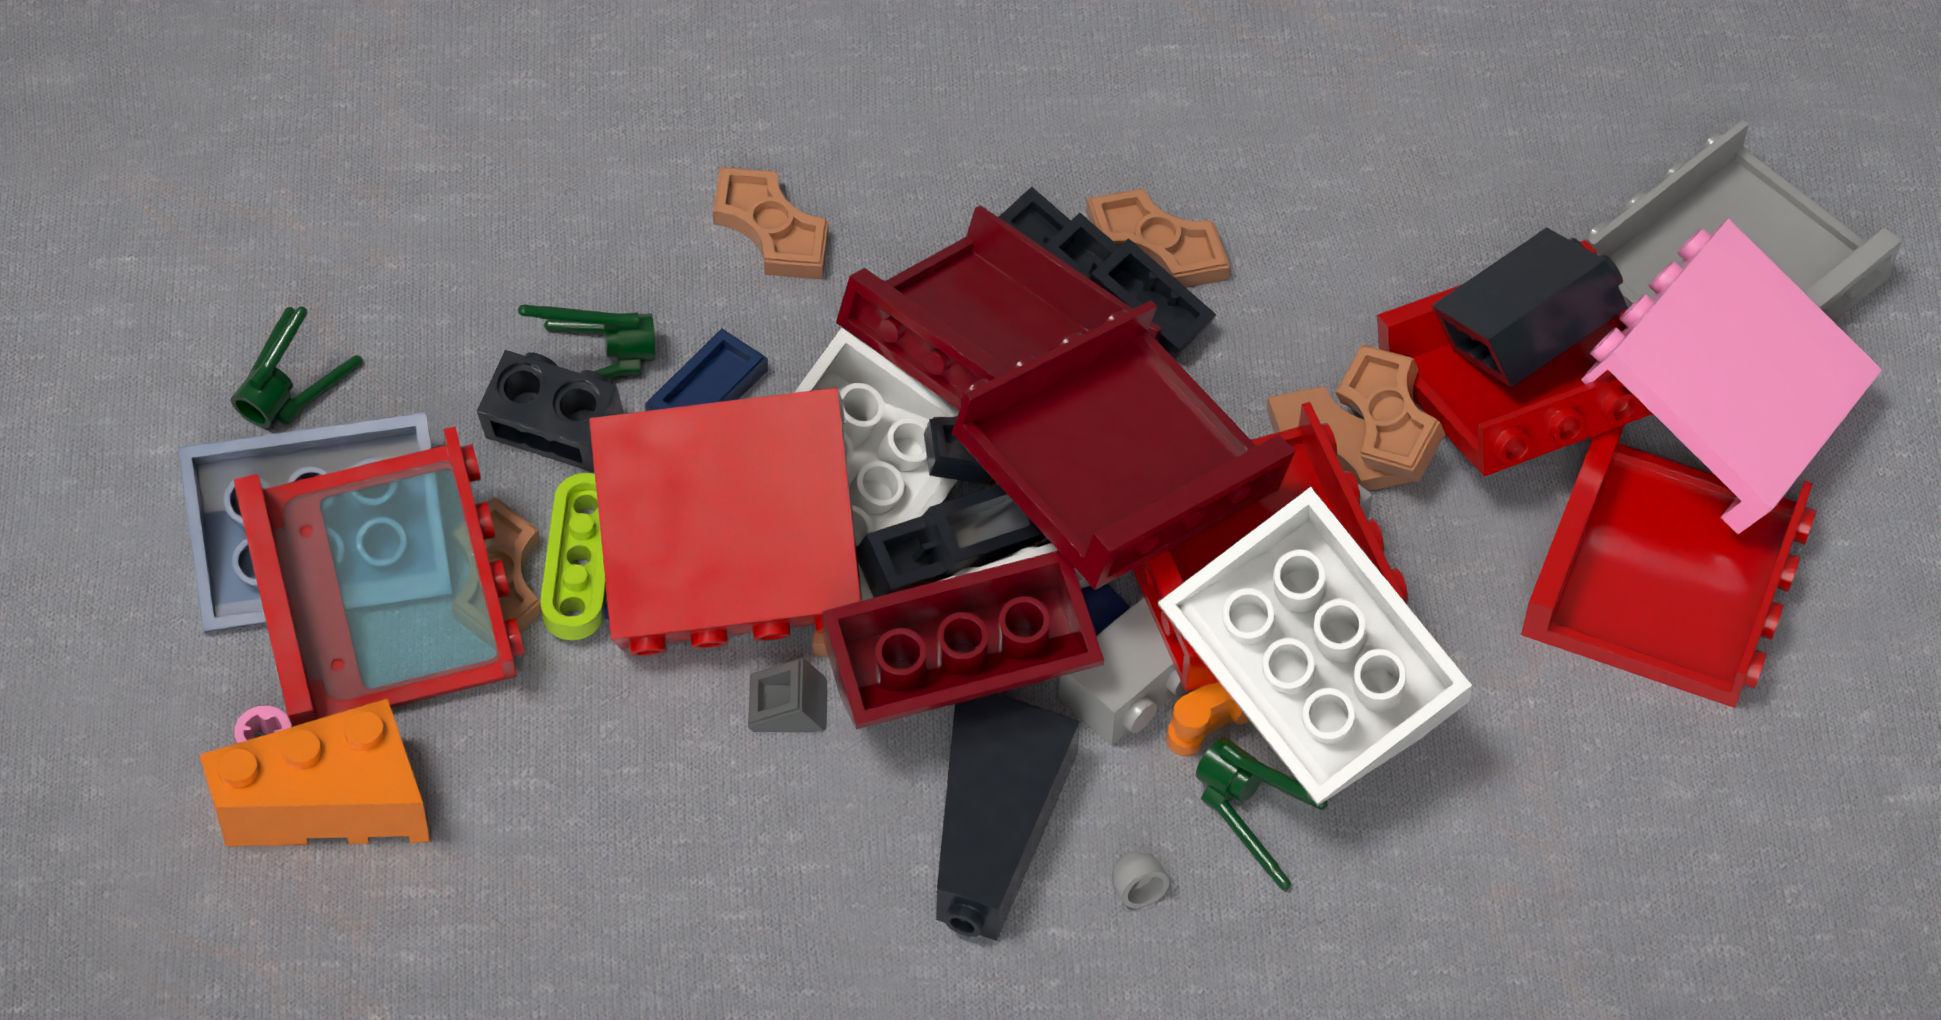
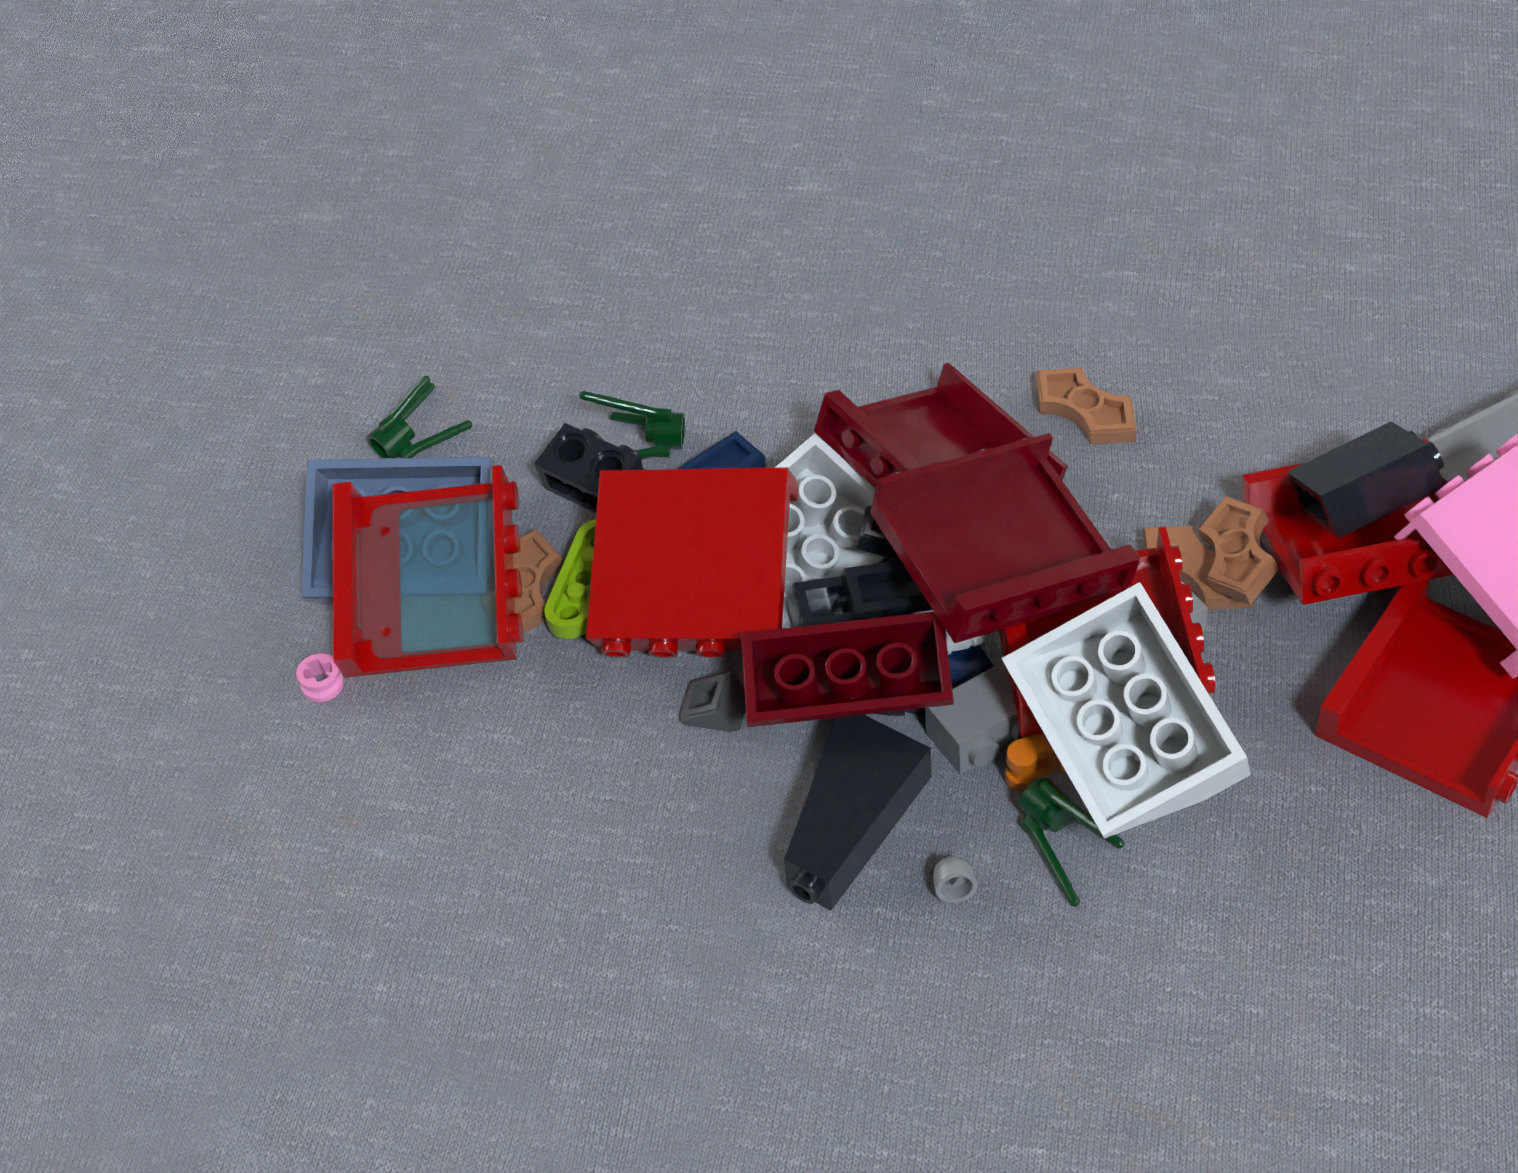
camera: 20 degrees right, 5 degrees down
(318, 781) = (343, 711): orange wedge -> none
(787, 238) = (801, 372): nougat tile -> none
(1118, 269) = (1025, 404): black slope -> none

